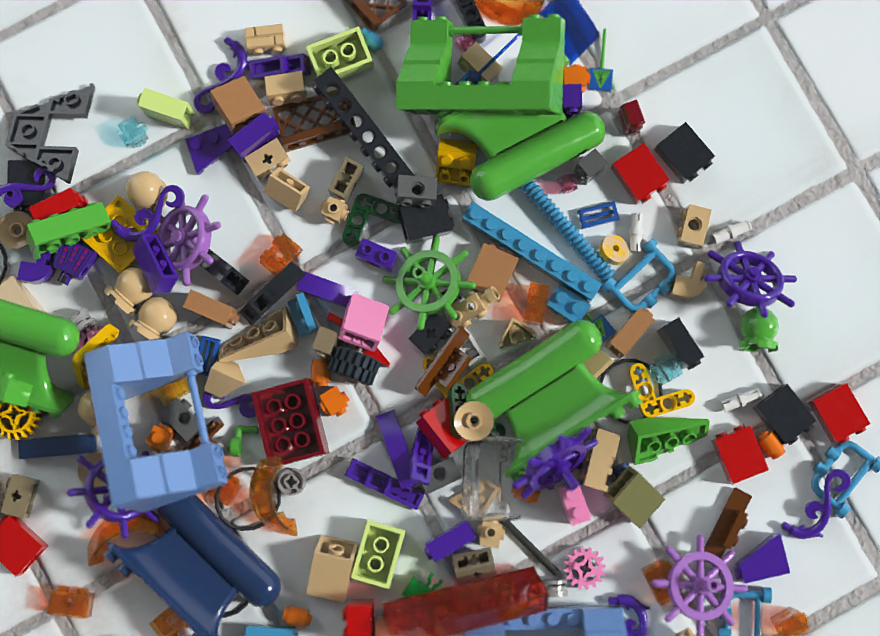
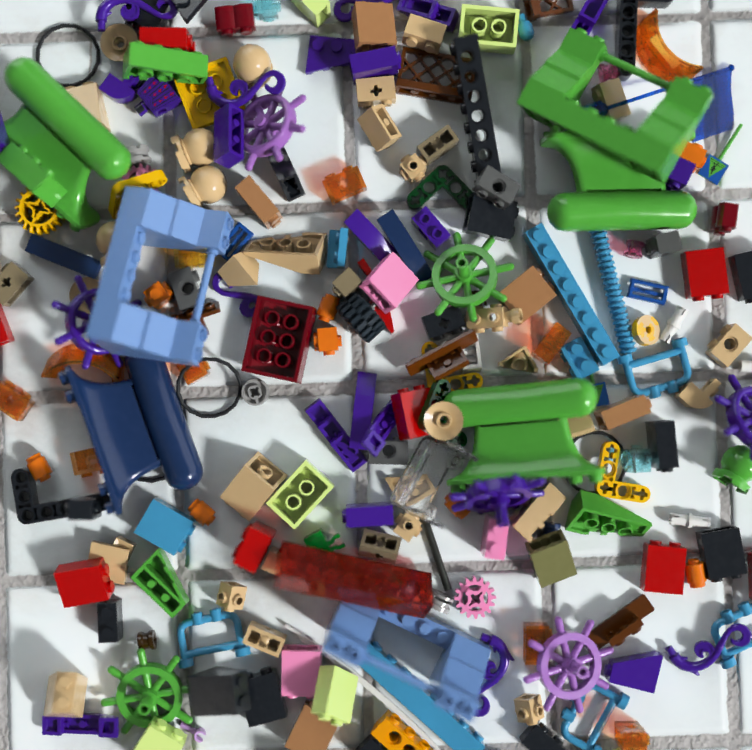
camera: 20 degrees right, 5 degrees up
(111, 158) = (235, 19): none -> dark red brick
(235, 445) = (220, 335): bright green plate -> none
(261, 497) = (222, 392): clear orange windscreen -> none
(272, 292) = (320, 215): black slope -> none
(361, 282) = (404, 245): none -> dark blue slope
(455, 161) = (544, 178): yellow slope -> none

